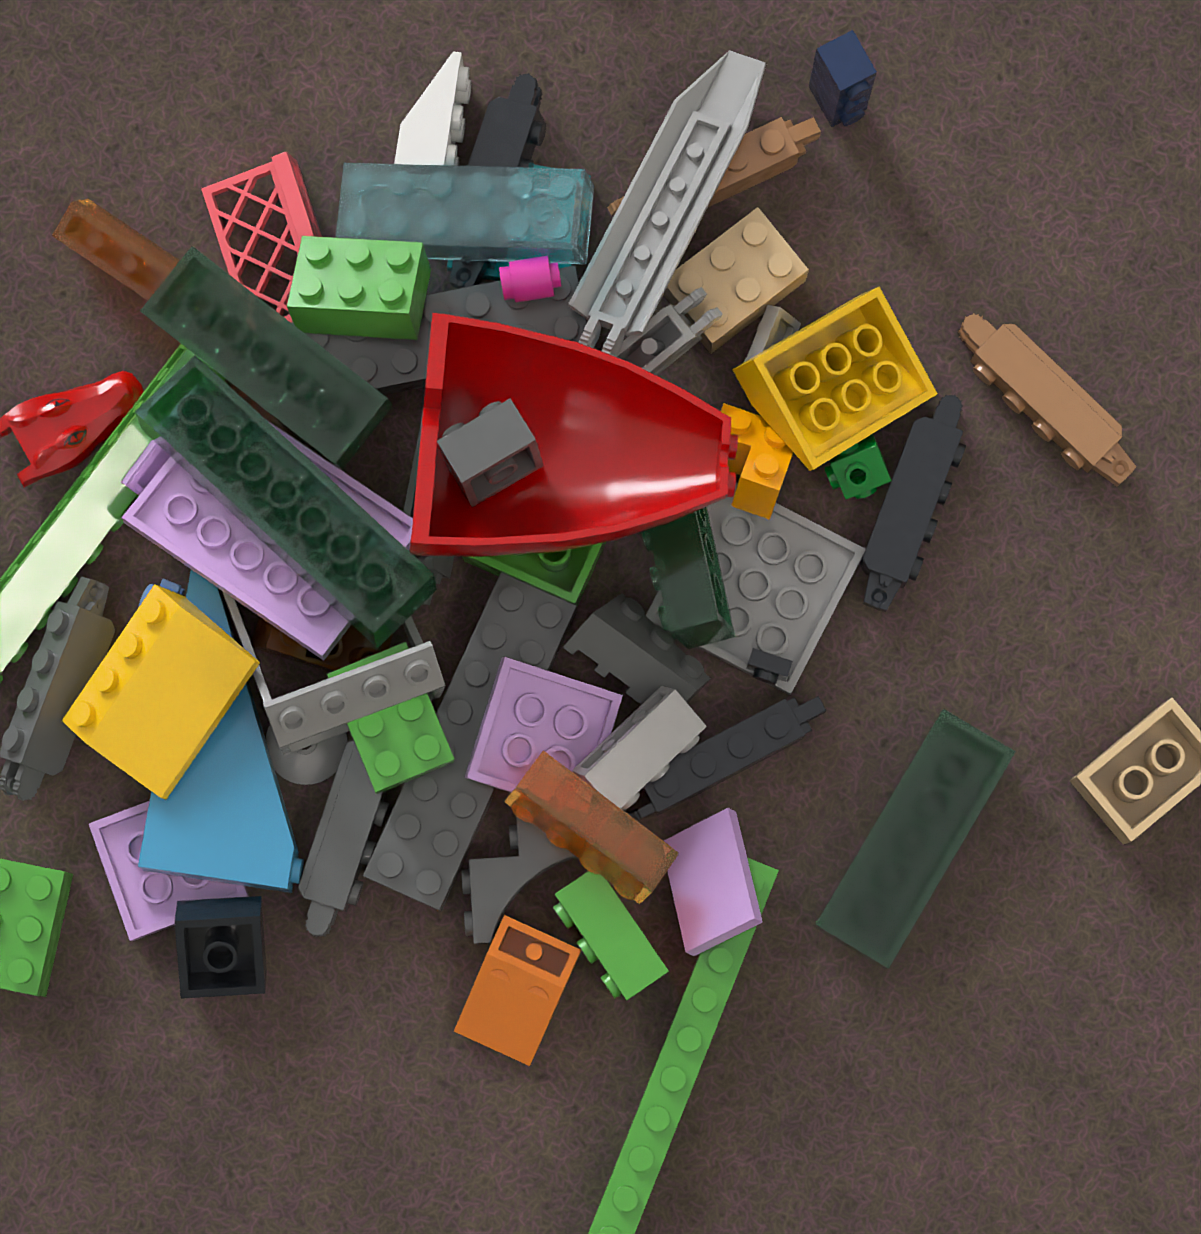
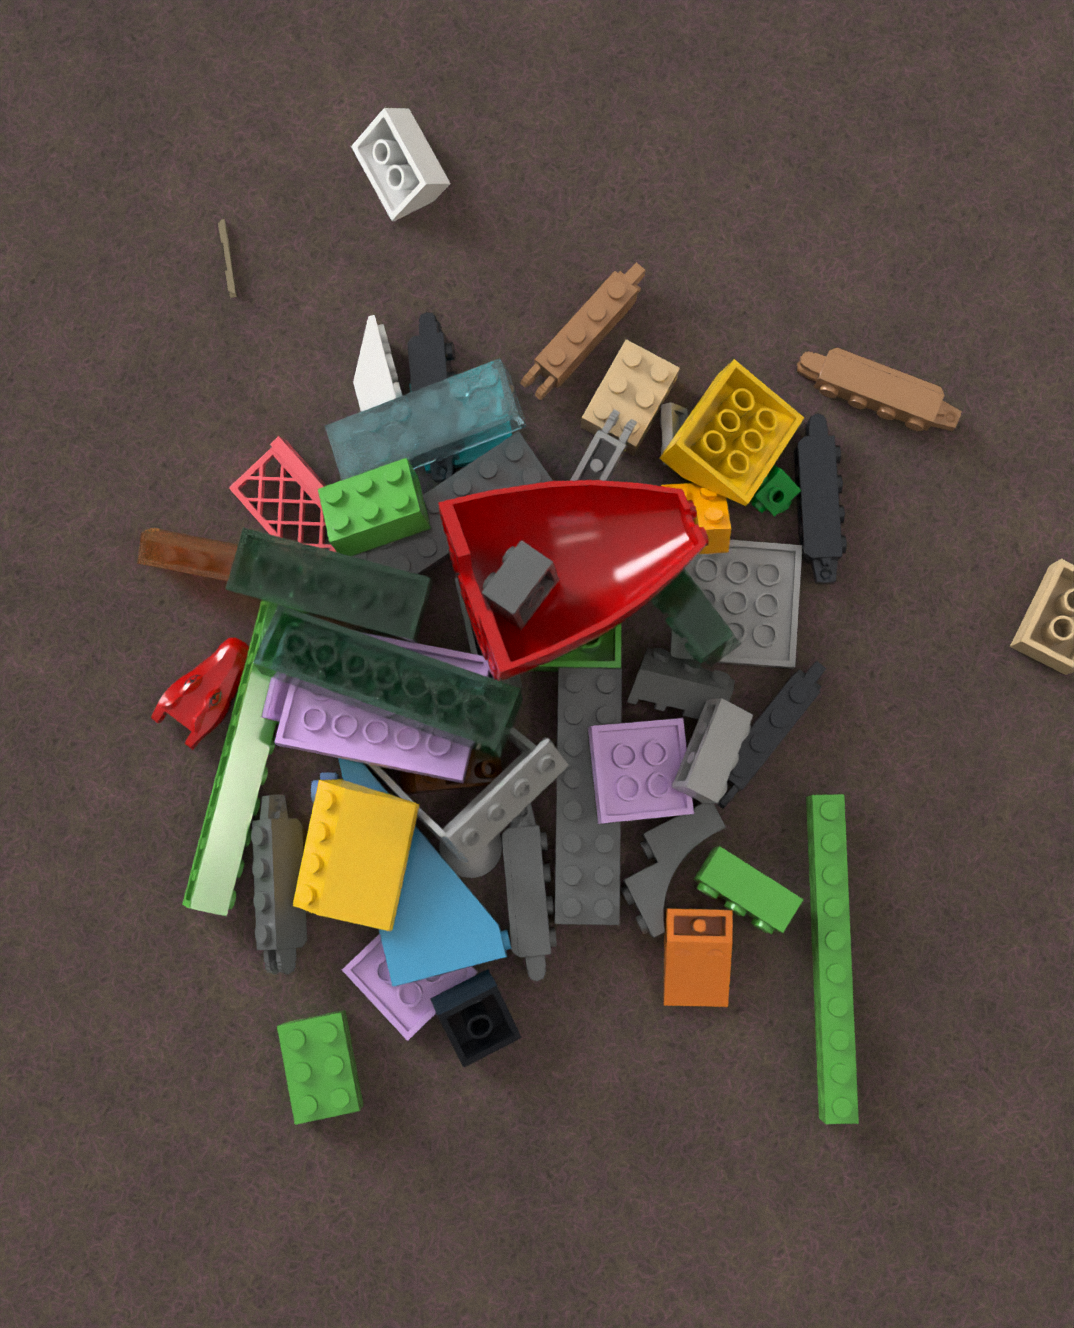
camera: 25 degrees left, 0 degrees up
(400, 739) = (545, 819): bright green brick -> none
(530, 279) = (493, 452): dark pink brick -> none
(591, 828) = (706, 821): clear orange brick -> none
(666, 201) = (564, 360): light grey hinge -> none
(712, 883) = (801, 823): lavender tile -> none
(768, 667) = (773, 654): black plate -> none
(842, 79) = (647, 226): dark blue brick -> none
(914, 839) = (925, 732): clear green brick -> none

